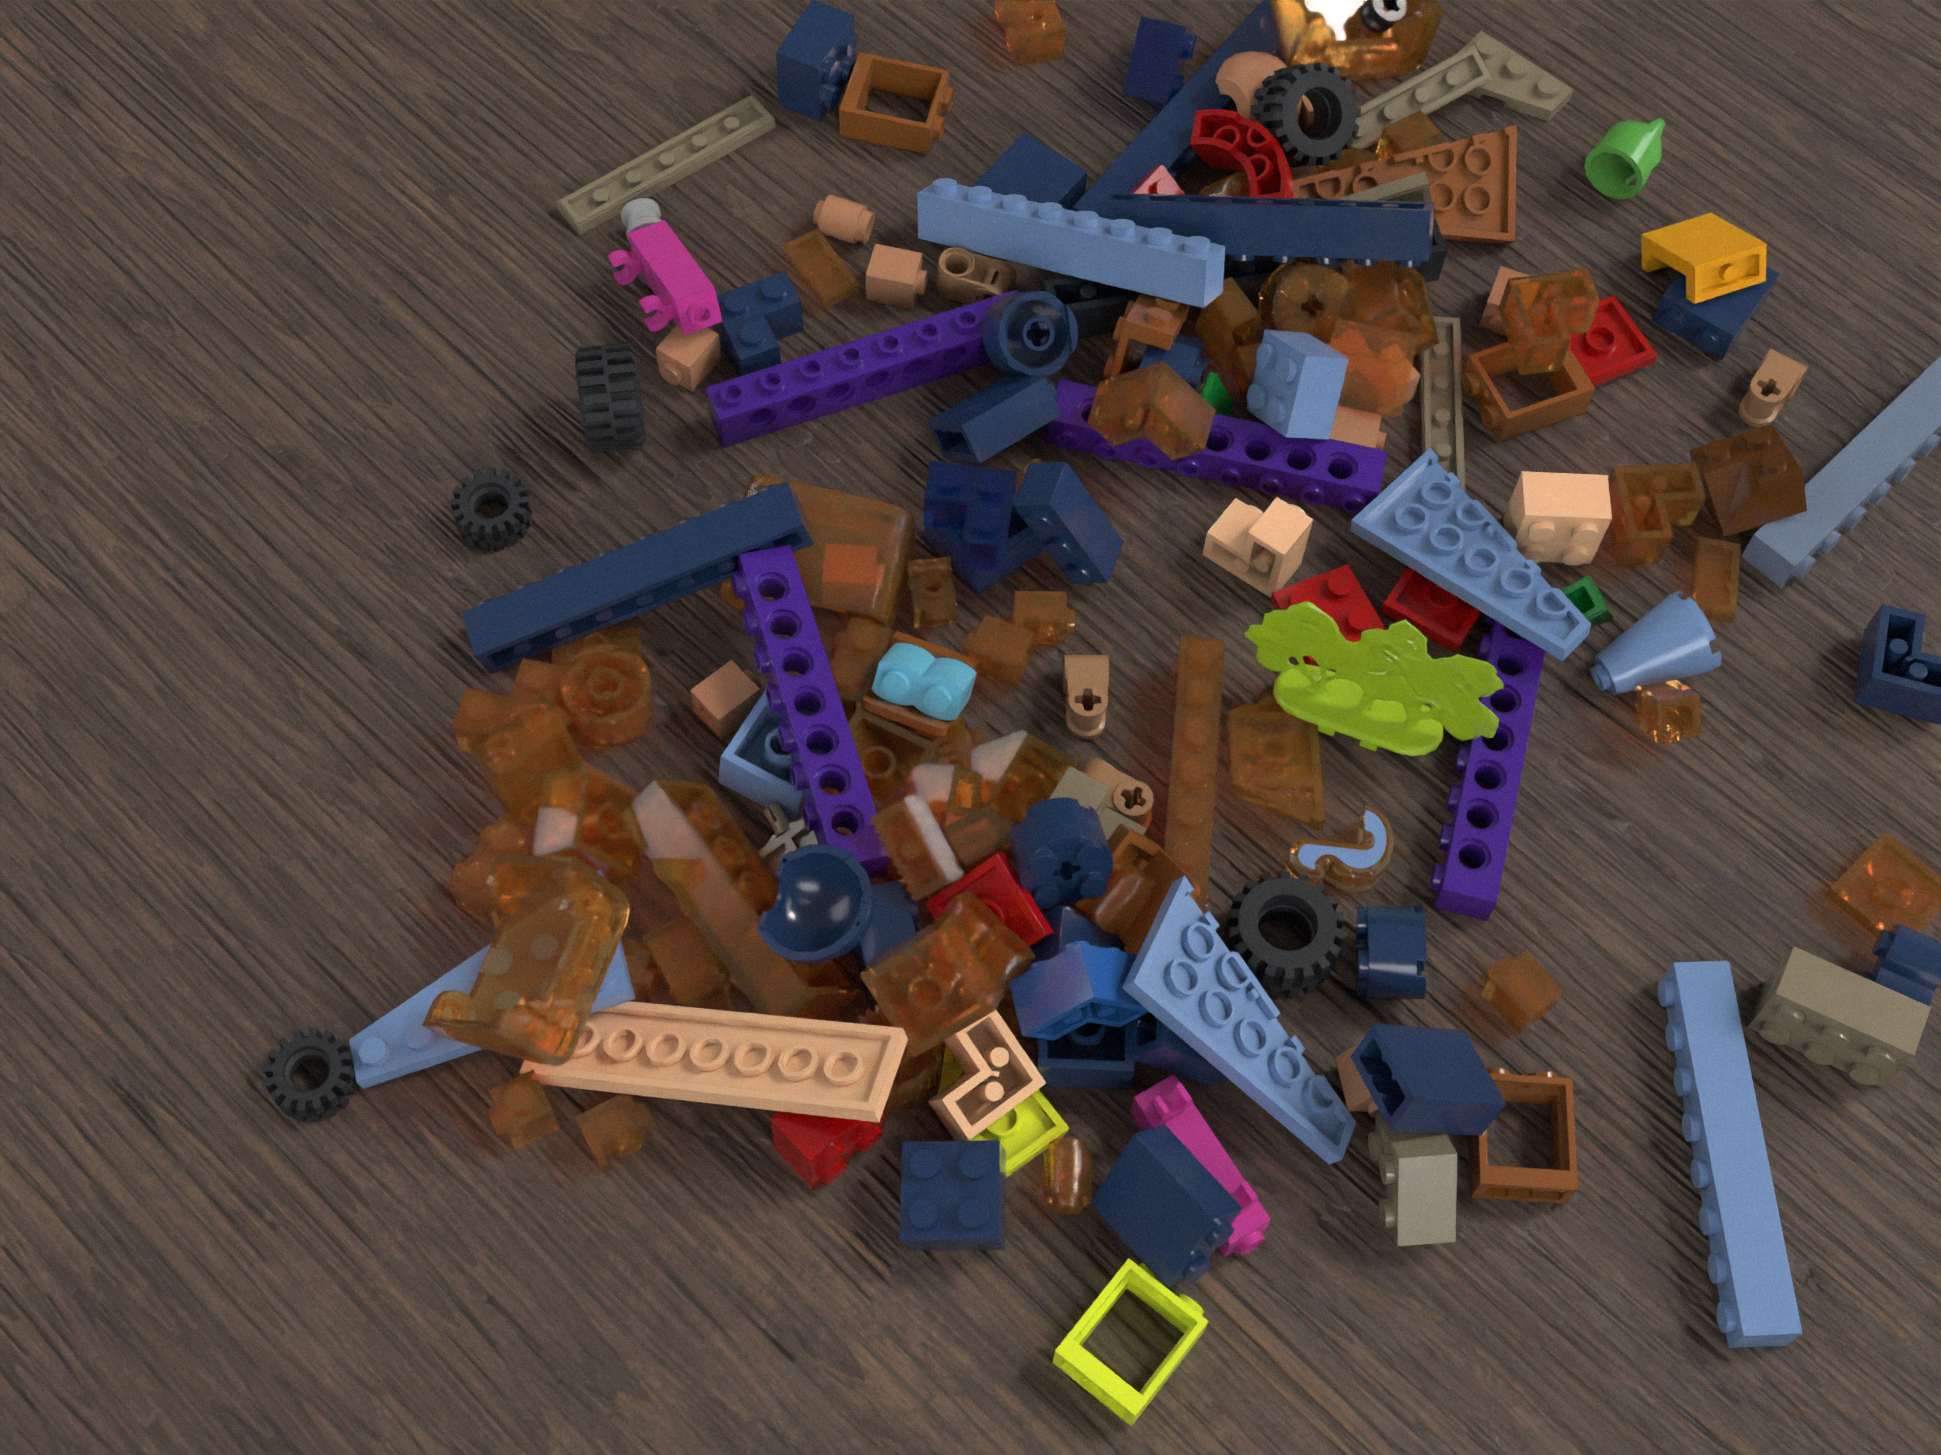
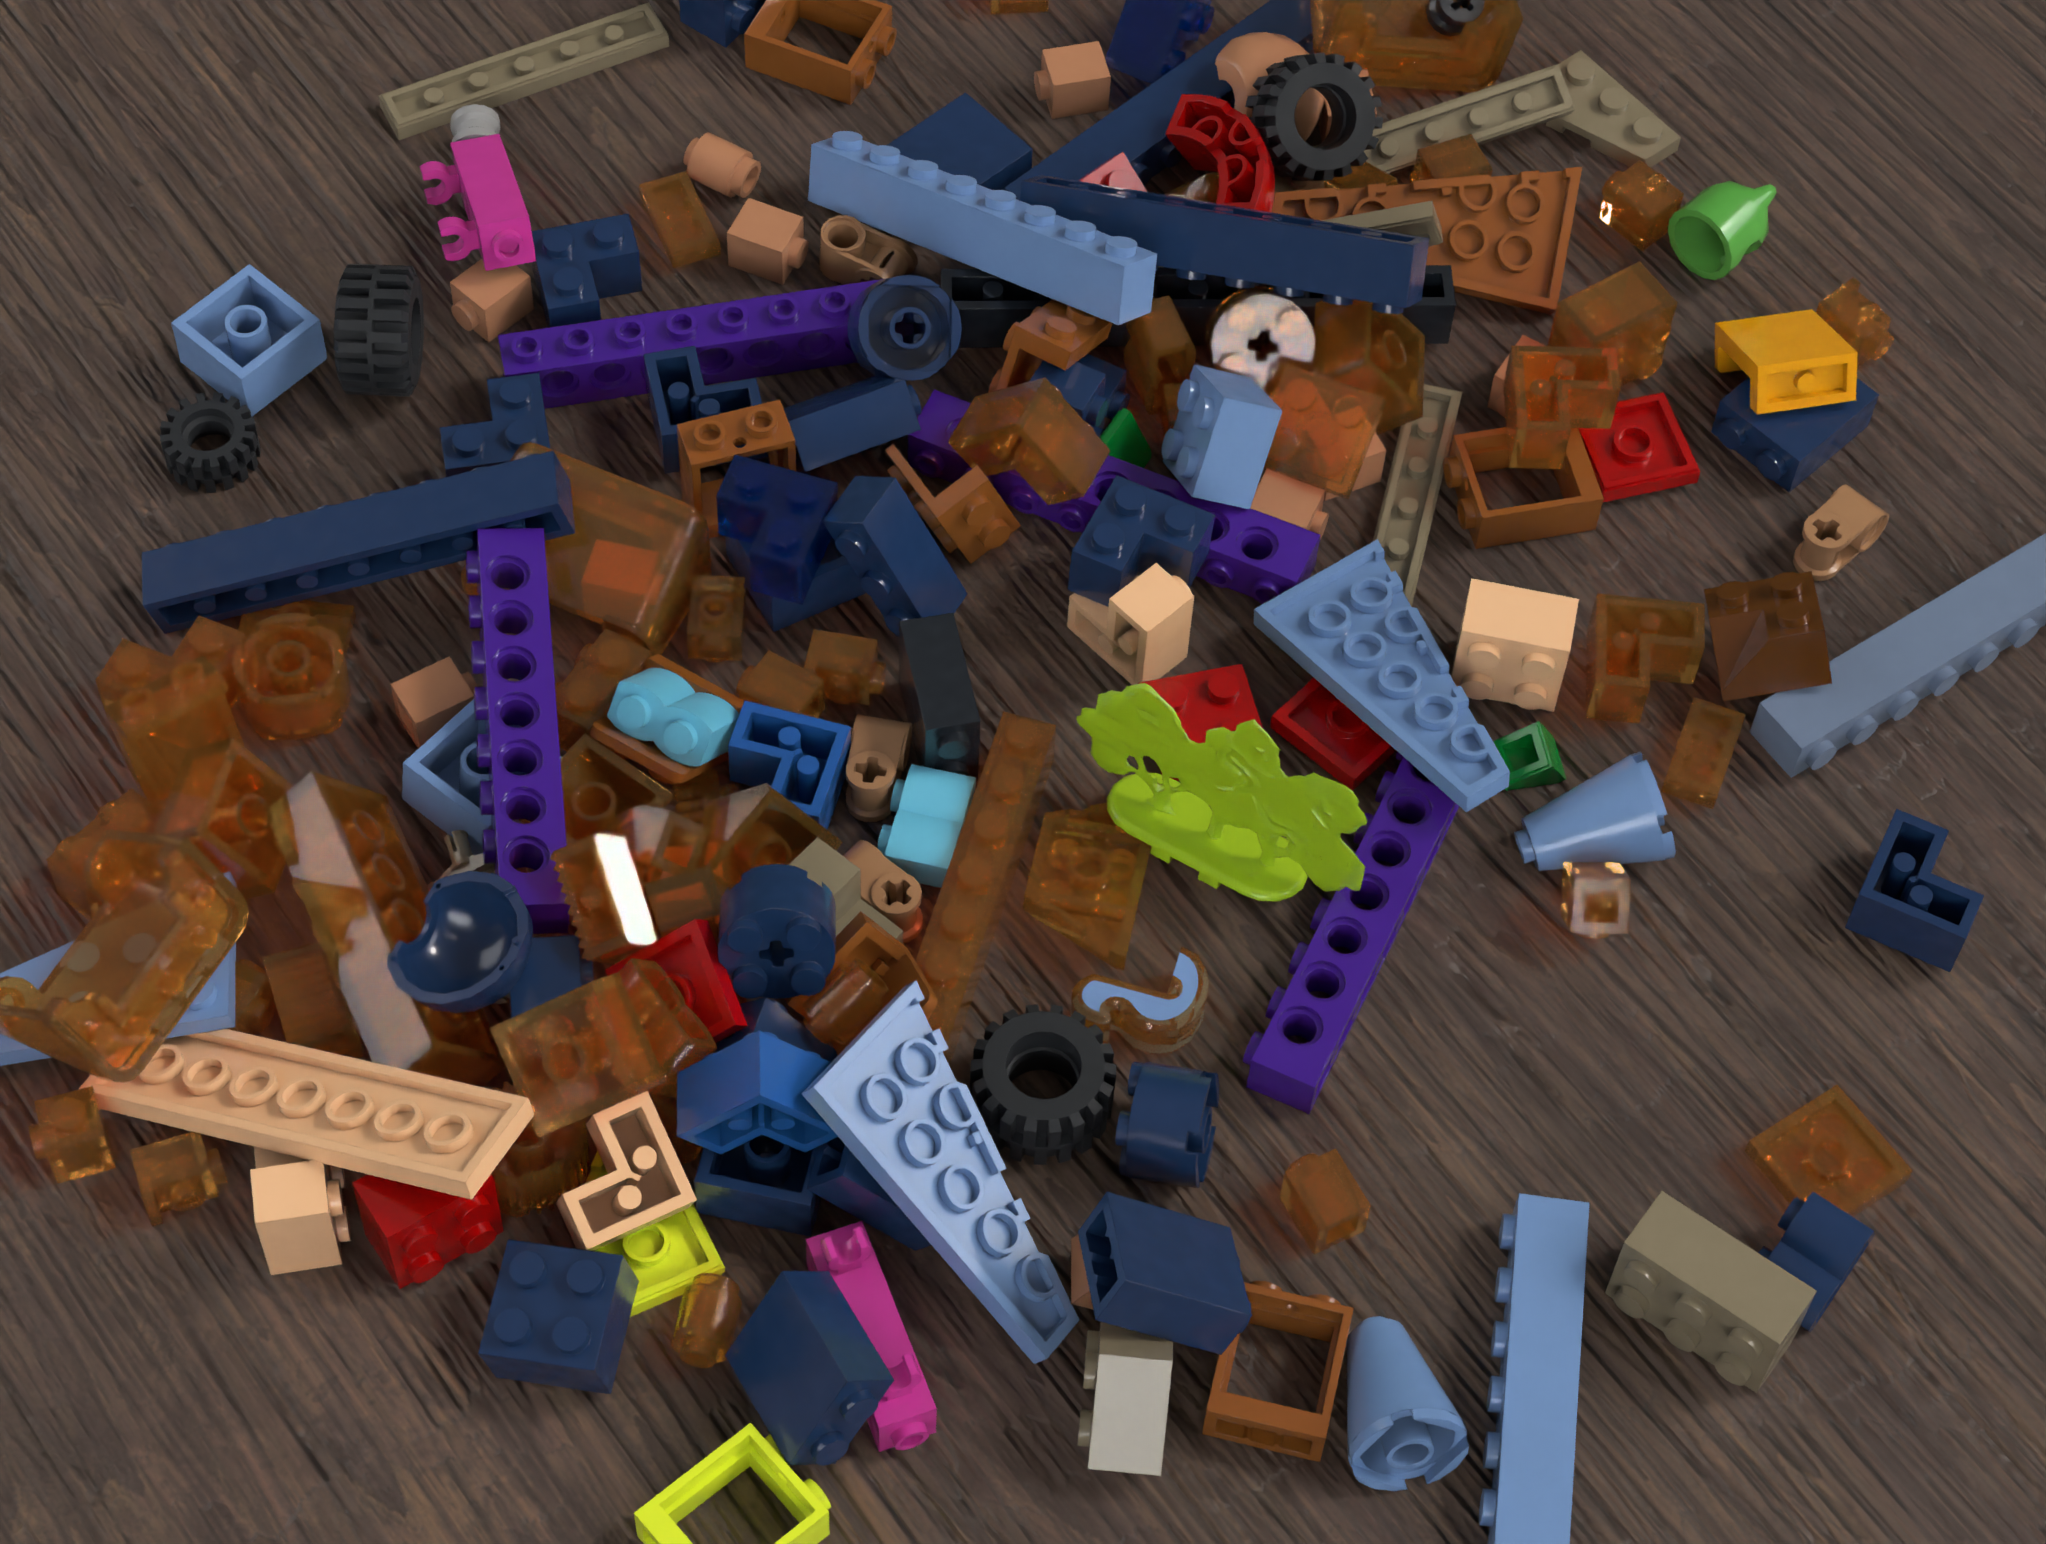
camera: 10 degrees right, 5 degrees down
(505, 420) = (249, 339): none -> medium blue brick
(723, 1144) = (298, 1211): none -> light nougat brick
(725, 479) = (516, 420): none -> dark blue brick
(880, 434) = (679, 396): none -> dark blue brick
(907, 452) = (713, 442): none -> dark orange window
(1021, 698) = (792, 754): none -> blue brick
(1101, 109) = (1073, 80): none -> nougat brick
(1112, 480) = (963, 515): none -> dark orange bracket
(1129, 633) = (939, 695): none -> black brick
(1140, 734) = (927, 822): none -> medium azure brick
(1253, 474) = (1134, 532): none -> dark blue brick
(1557, 147) = (1639, 204): none -> clear orange brick
(1573, 241) = (1621, 313): none -> clear orange brick
(1623, 1152) = (1397, 1410): none -> medium blue cone
(1745, 213) = (1857, 321): none -> clear orange brick

